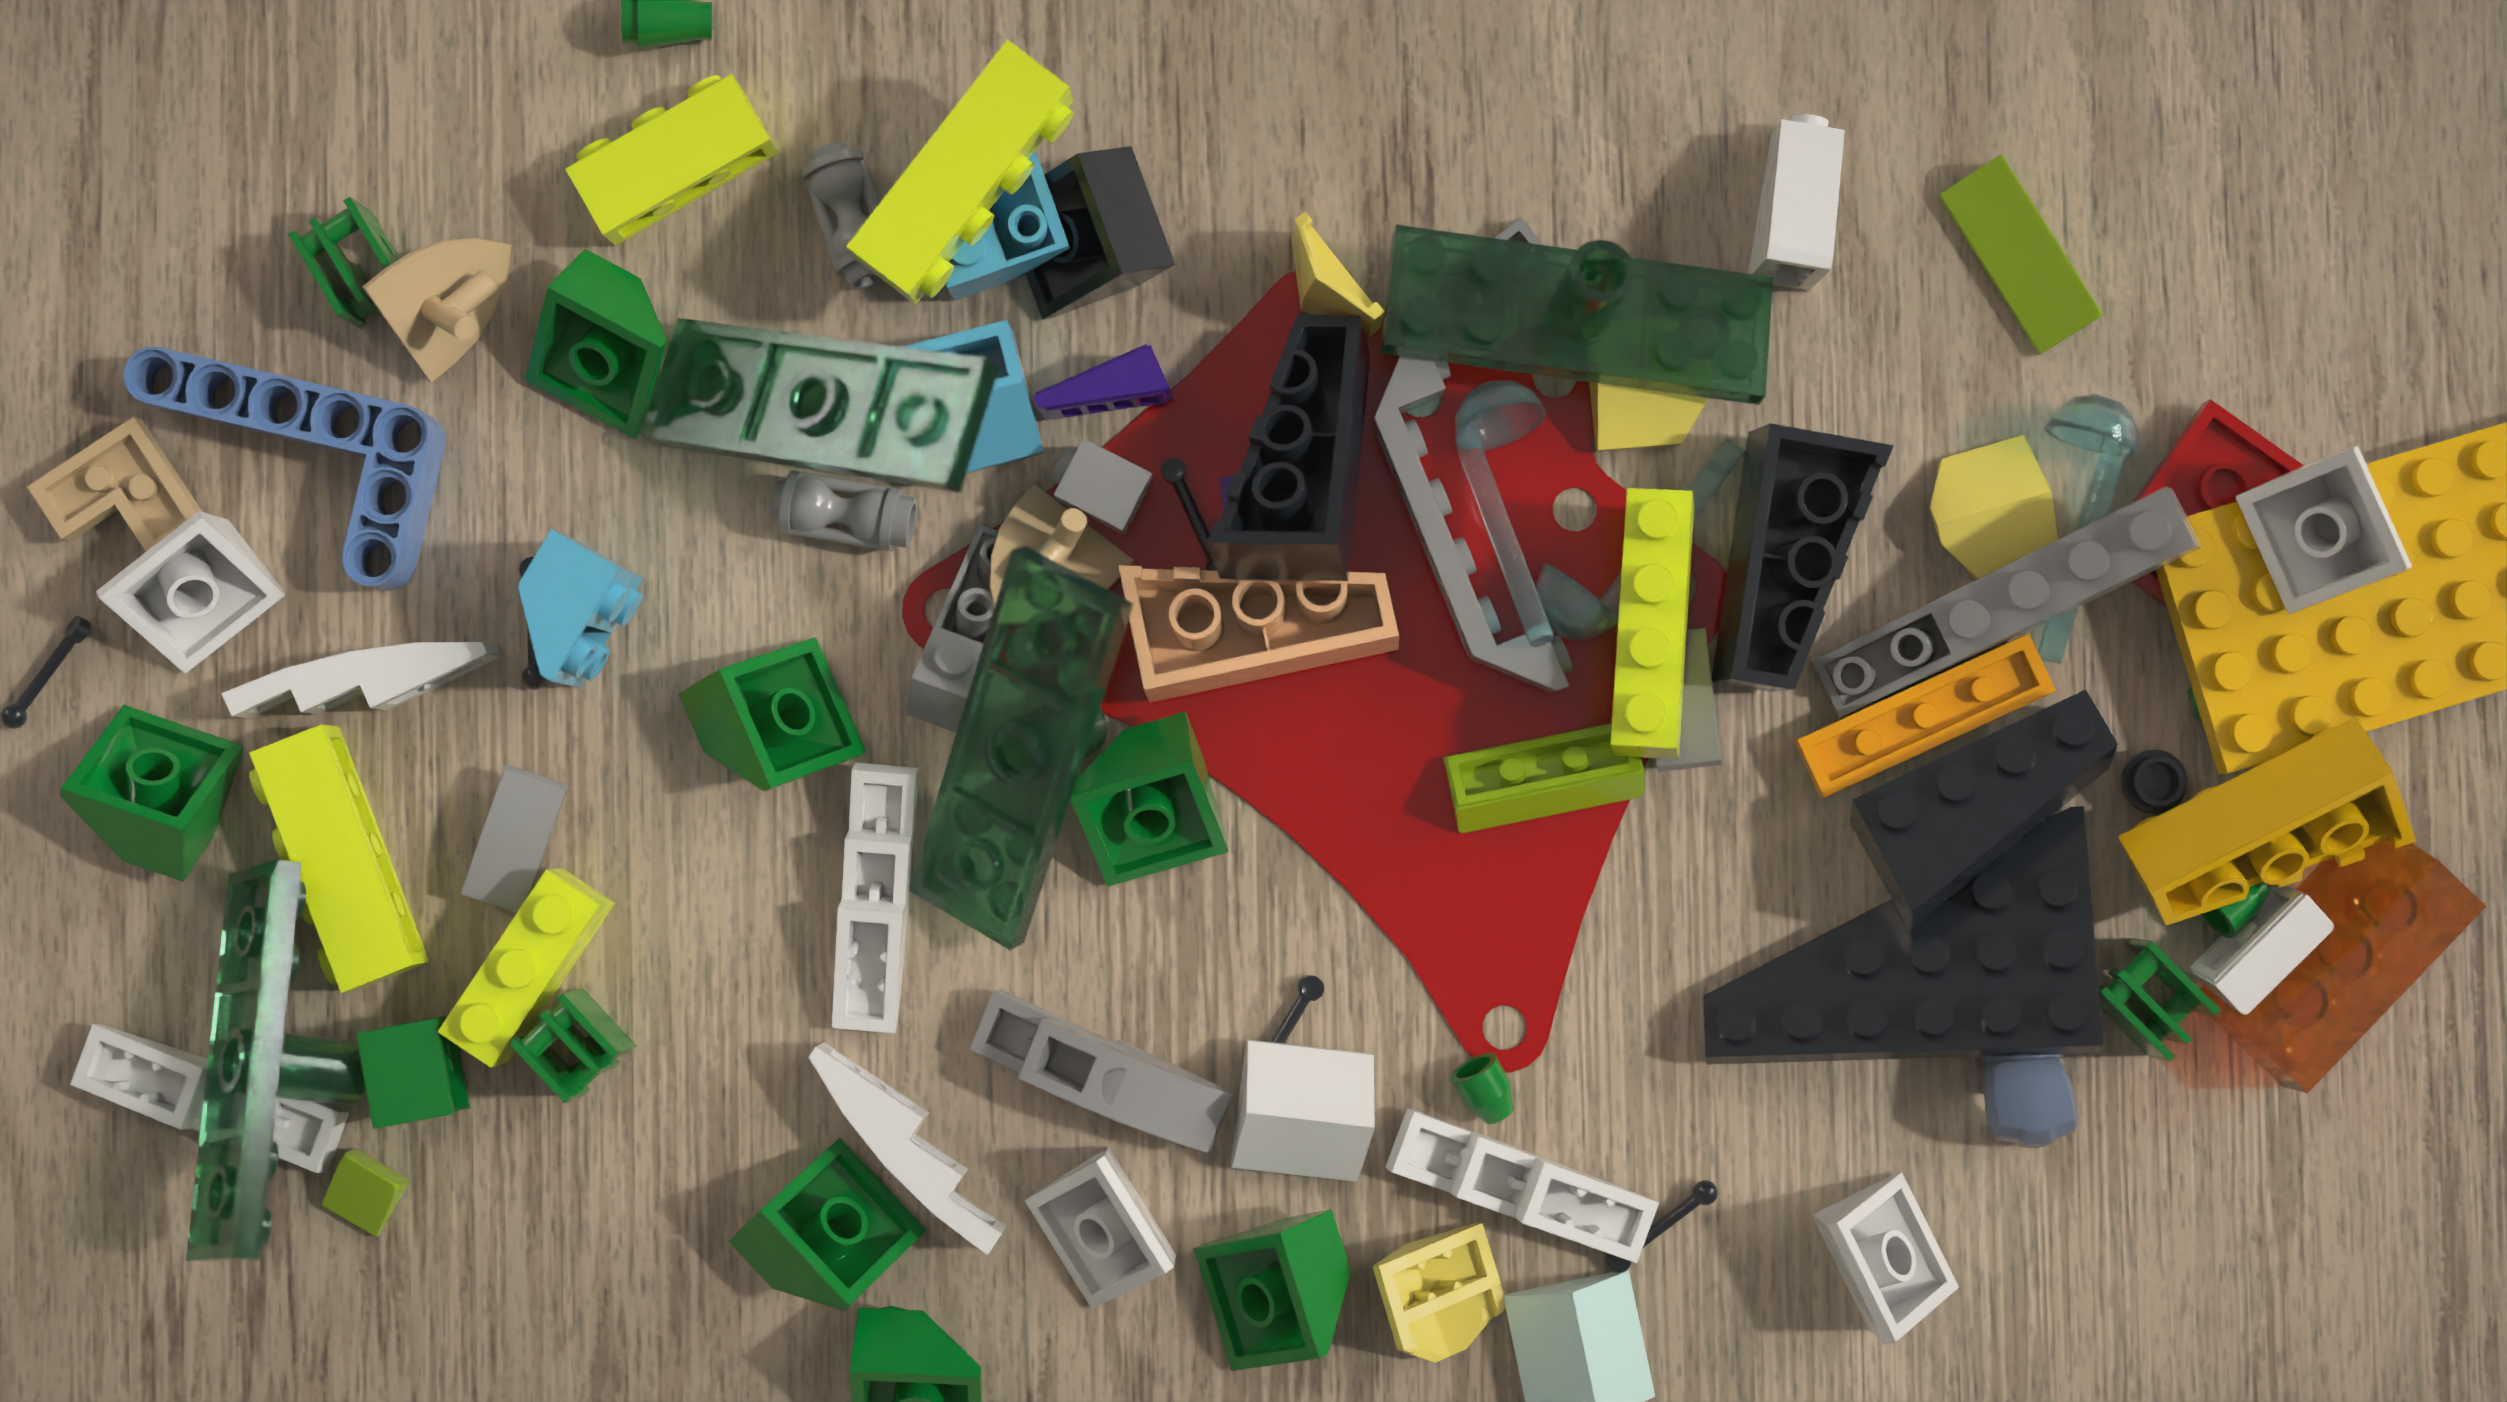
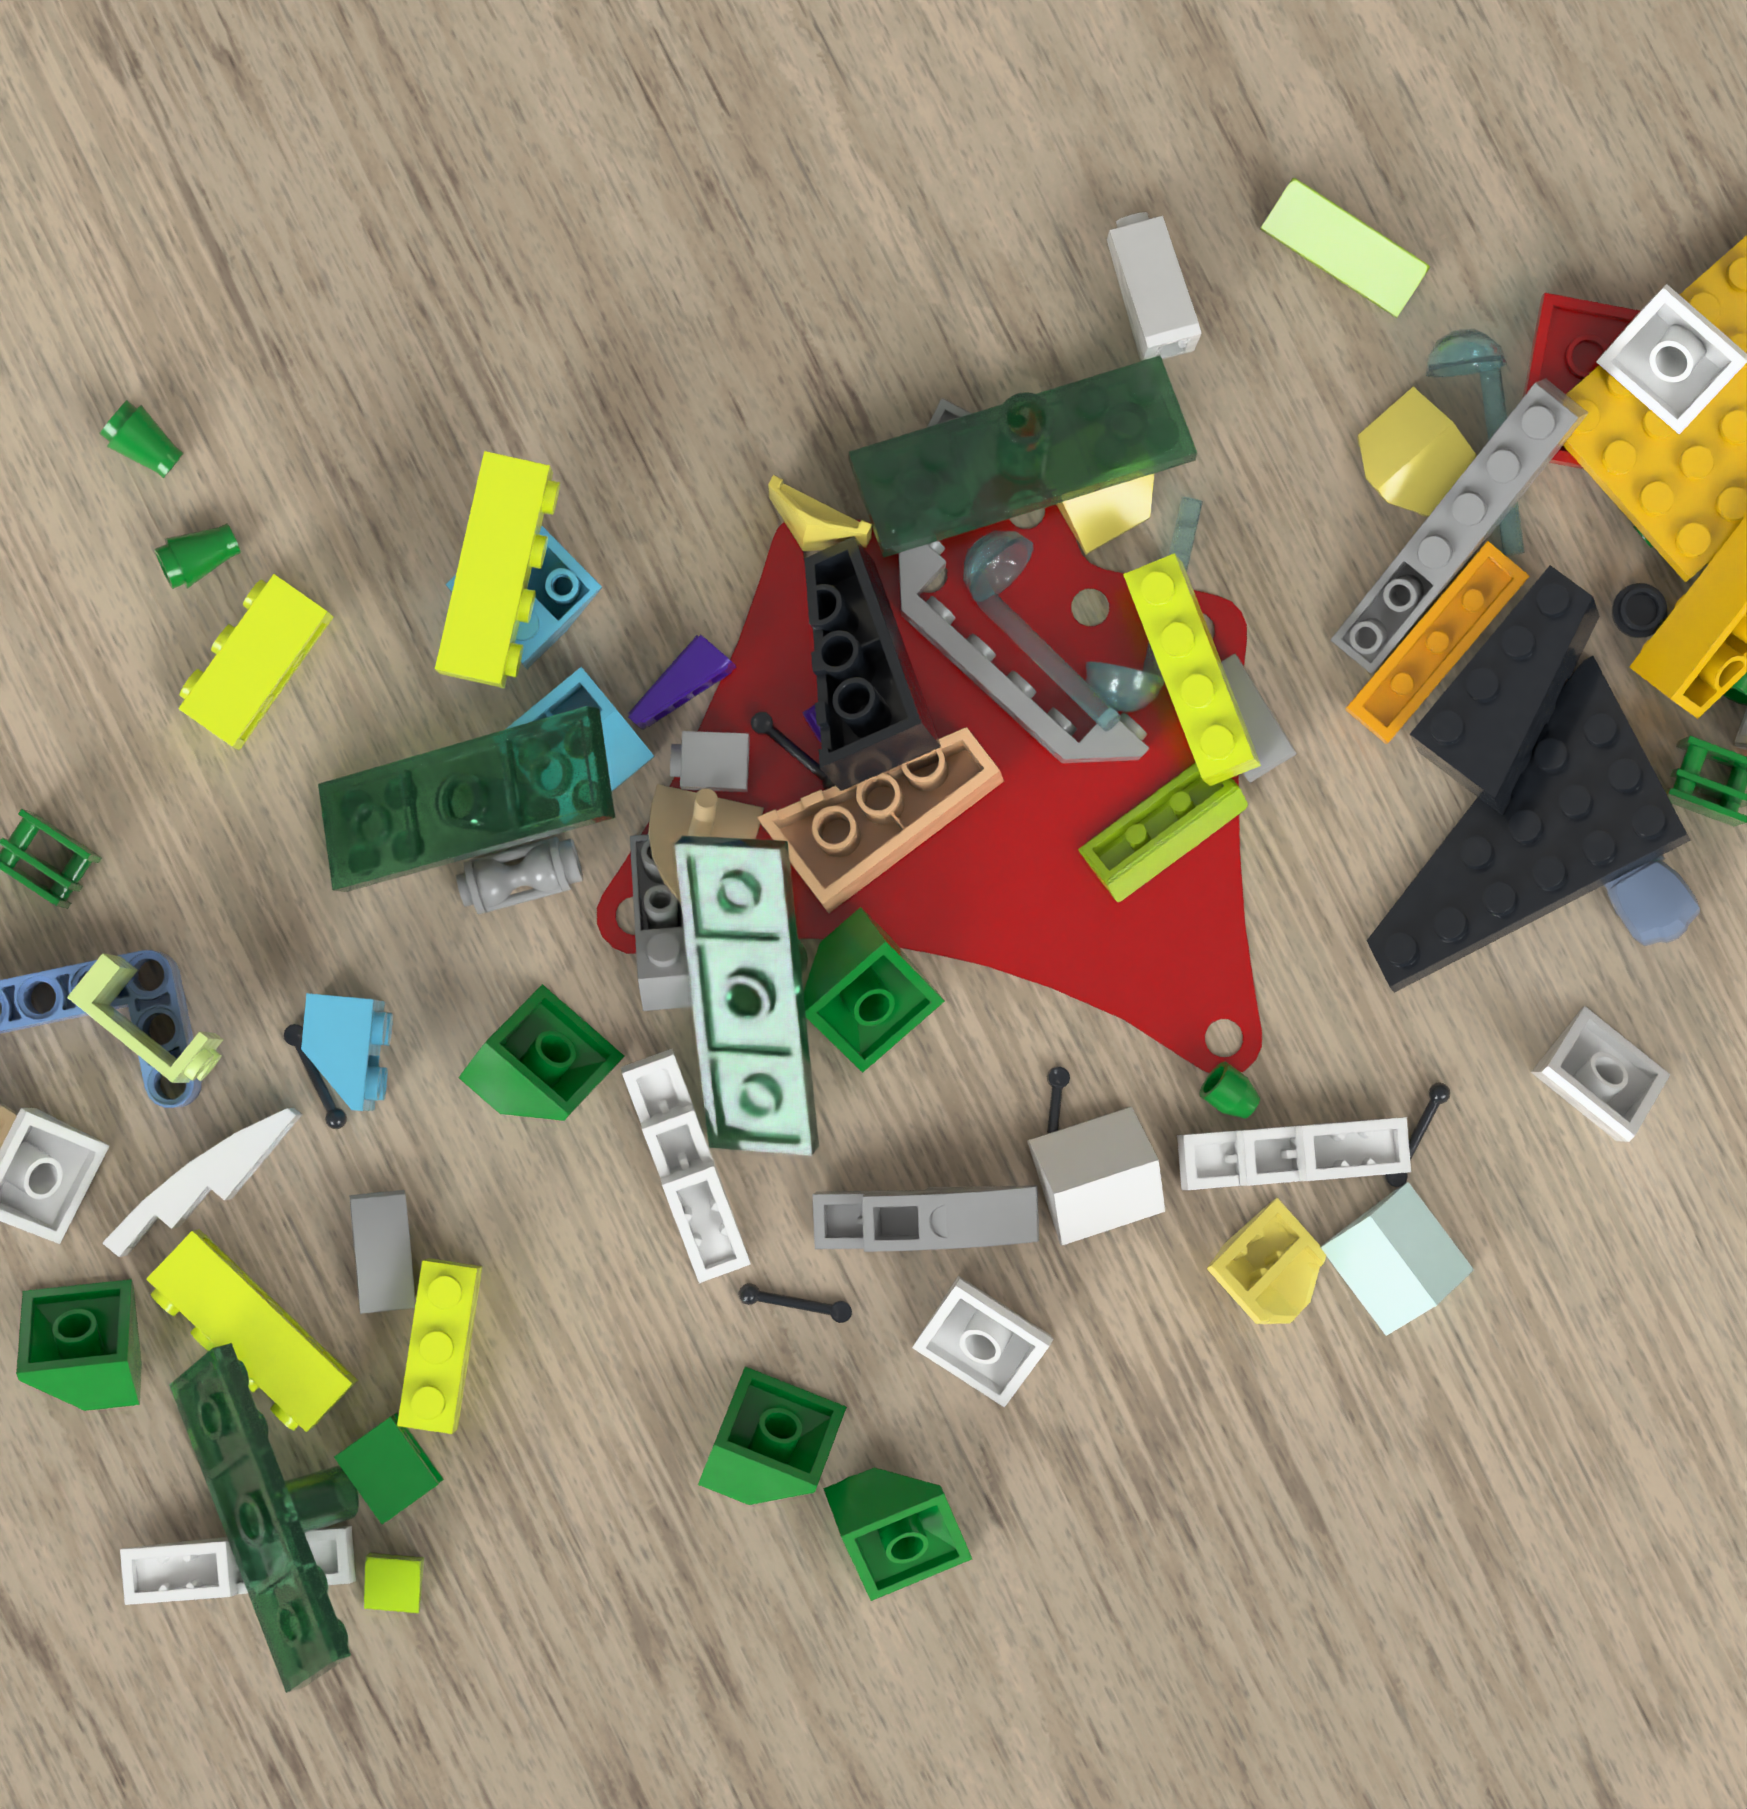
camera: 30 degrees left, 0 degrees up
(325, 432) = (98, 991): none -> yellowish green panel
(441, 298) = (127, 855): tan shield -> none
(595, 1052) = (527, 1390): green piece -> none
(598, 343) = (268, 833): green slope -> none
(839, 180) = (393, 618): light grey piece -> none
(889, 1128) = (781, 1338): white slope -> none
(965, 1125) = (839, 1311): none -> black hinge
(1109, 232) = (625, 558): black slope -> none
(1276, 1289) = (1141, 1323): green slope -> none
(1788, 548) = (1271, 562): black wedge -> none

